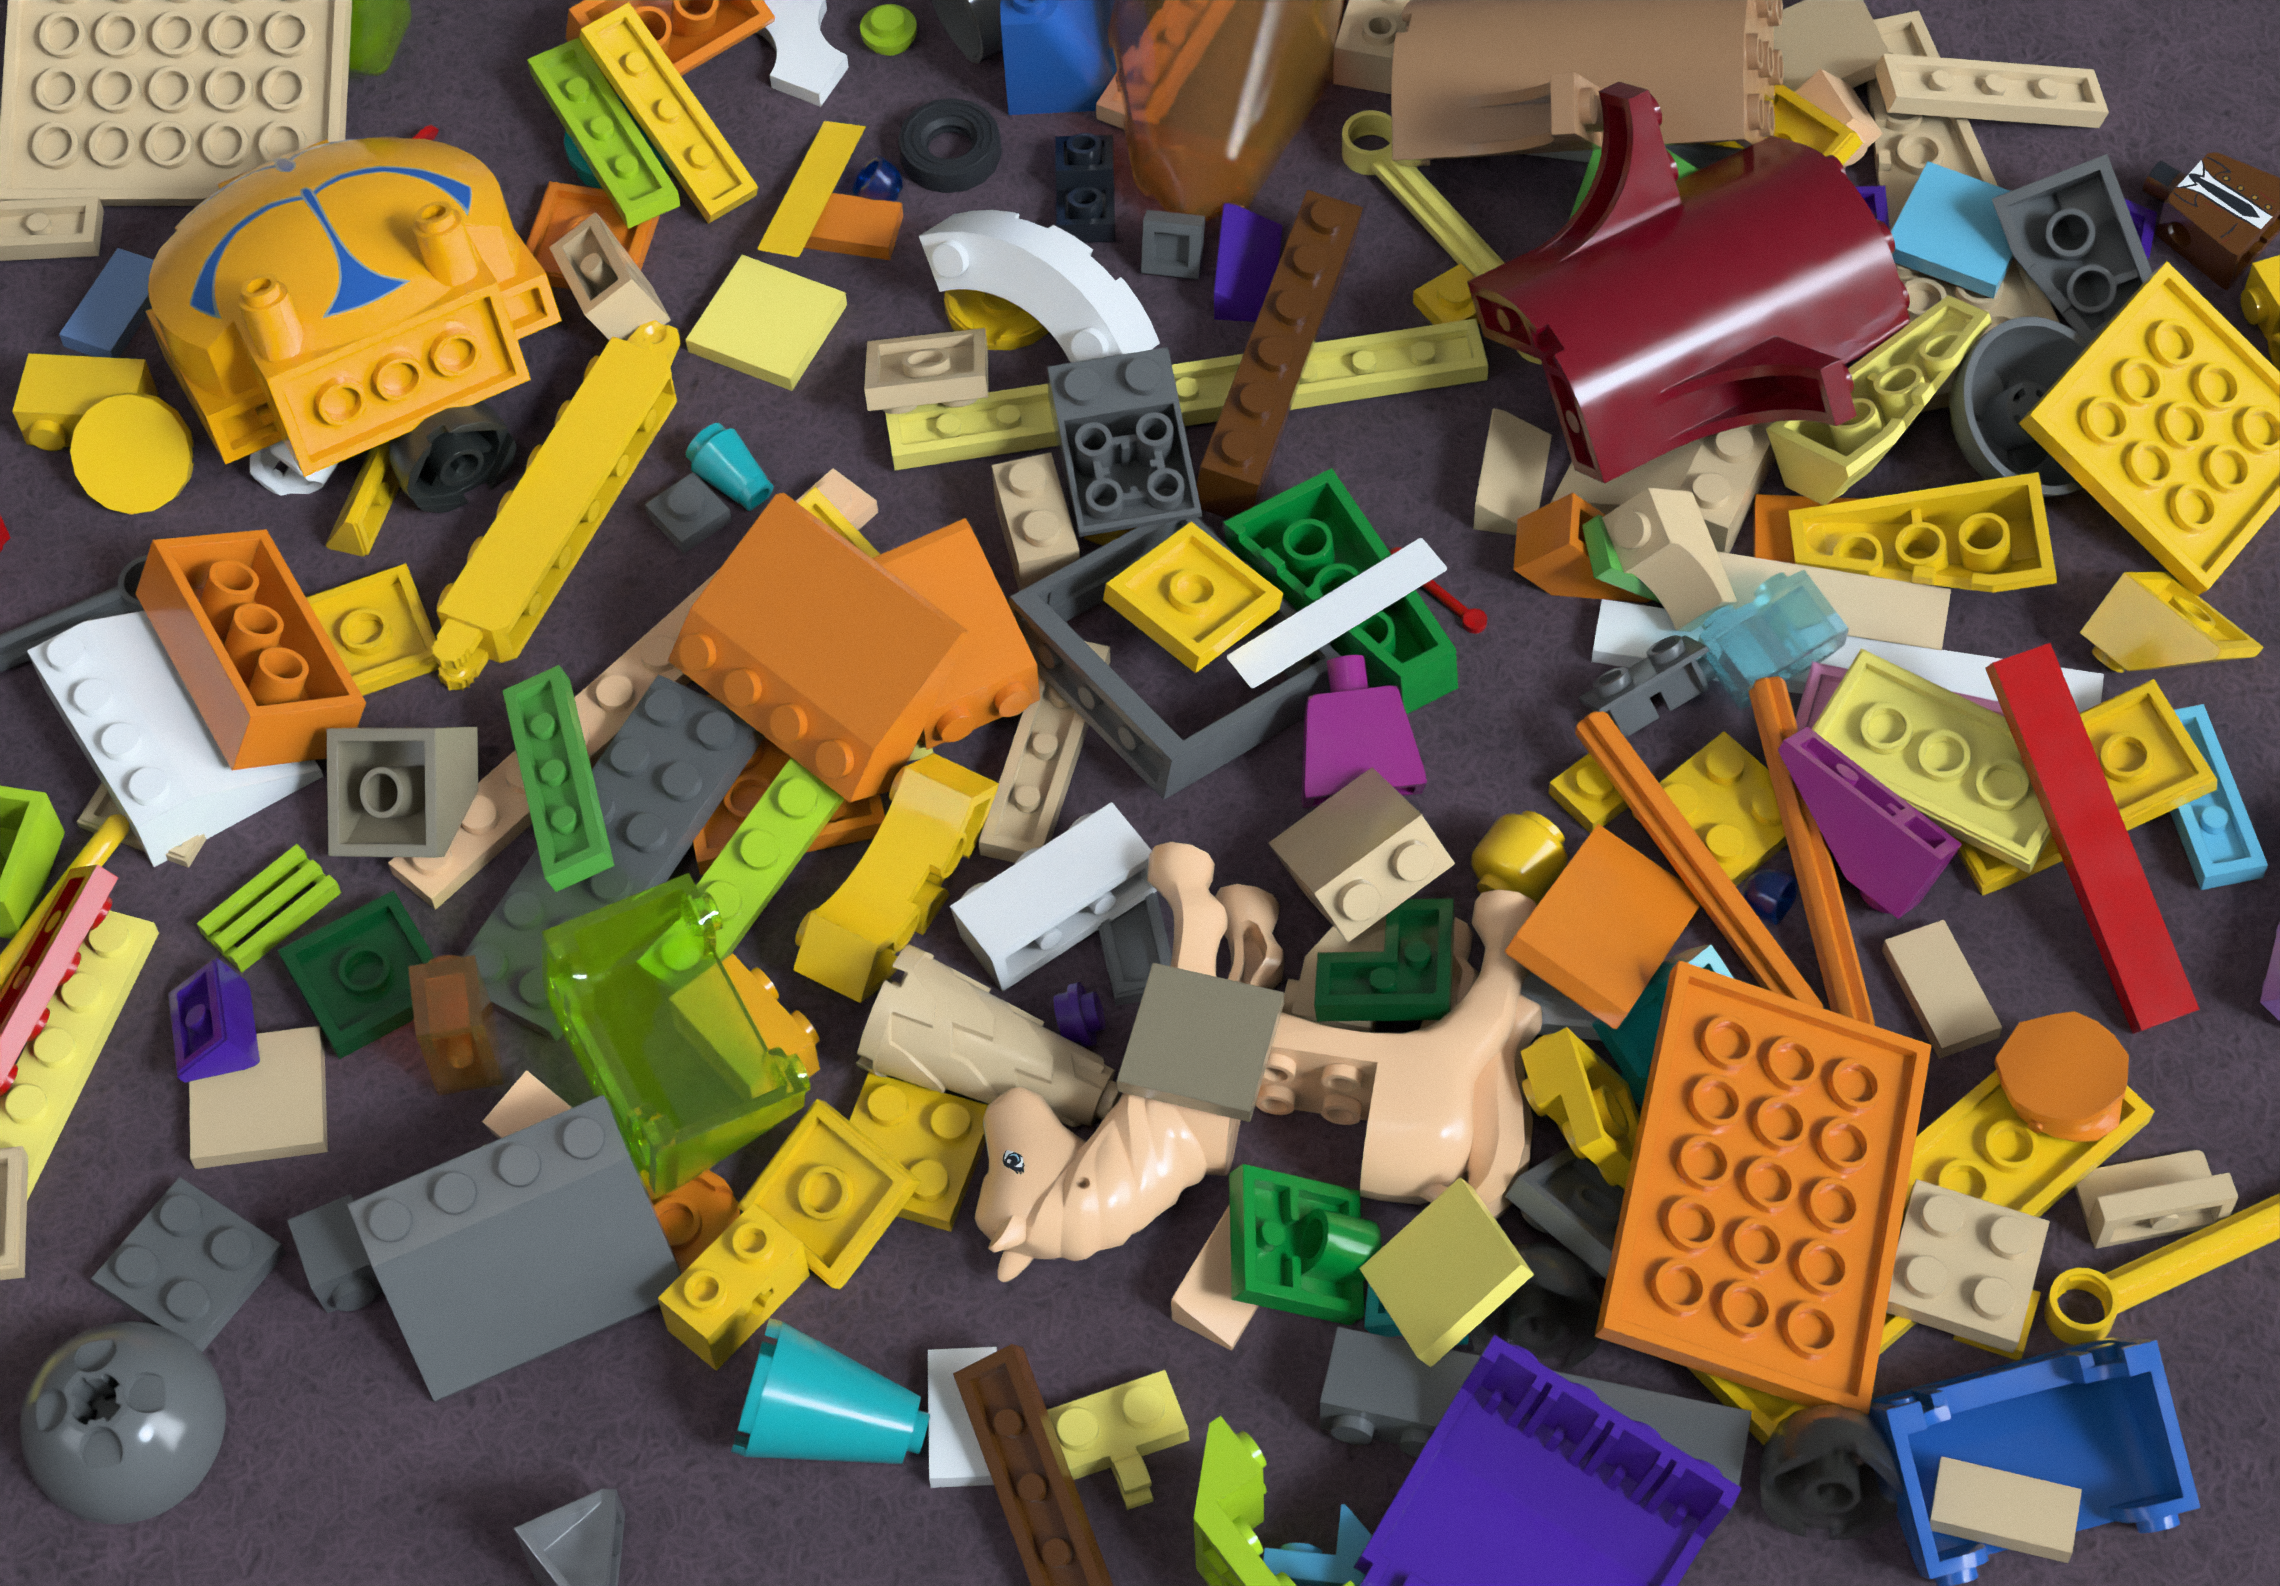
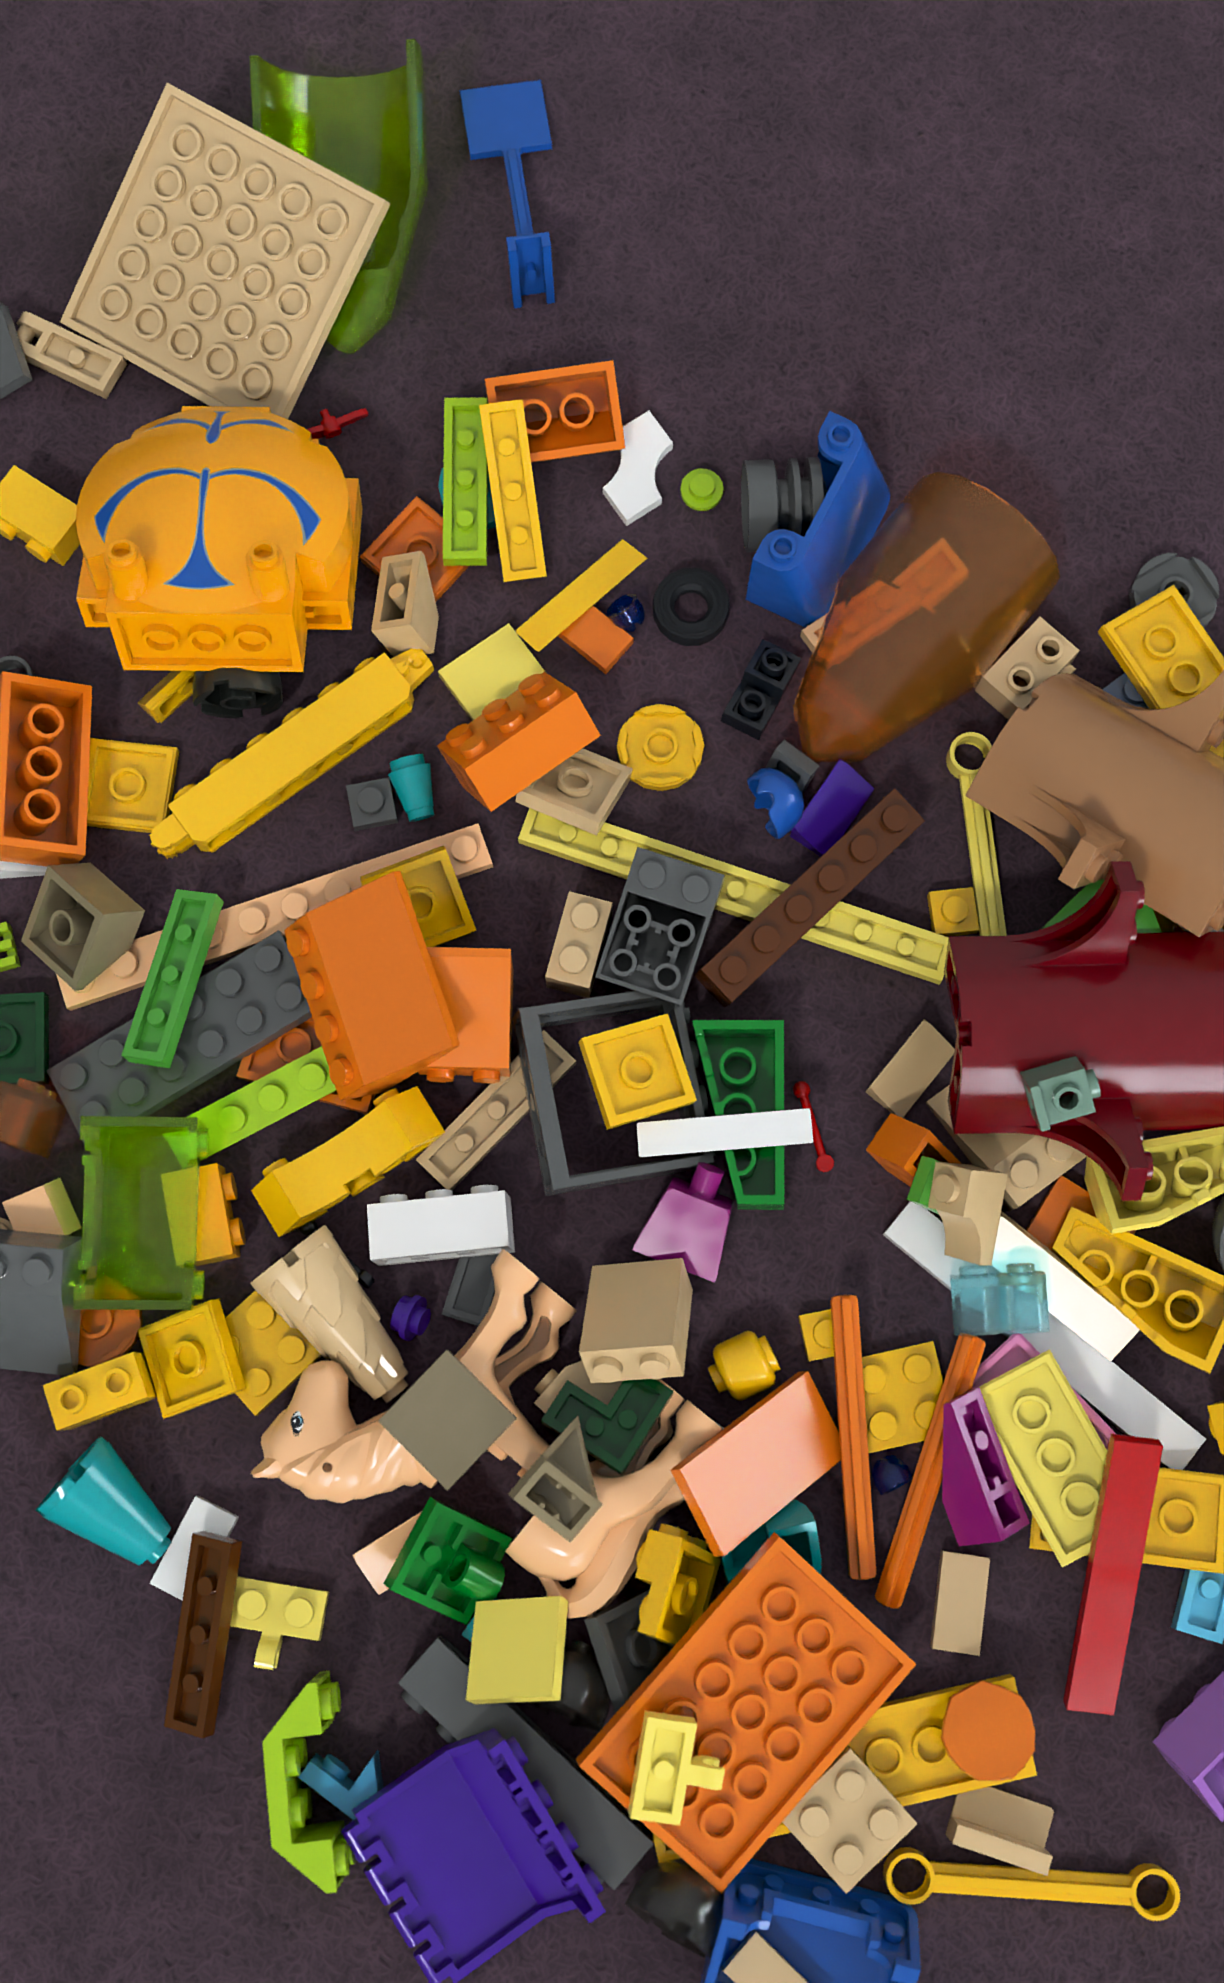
camera: 25 degrees right, 20 degrees up
(111, 307) = (85, 447): medium blue tile -> none
(132, 453) = (42, 574): yellow tile -> none
(831, 345) = (518, 739): none -> orange brick
(1045, 276) = (683, 765): white brick -> none
(1175, 274) = (778, 795): none -> blue hair
(1380, 1044) = (560, 1485): none -> dark tan slope
(1667, 670) = (883, 1280): dark grey hinge -> none
(1679, 358) = (1048, 1082): none -> sand green brick
(1711, 1272) = (667, 1768): none -> light yellow plate

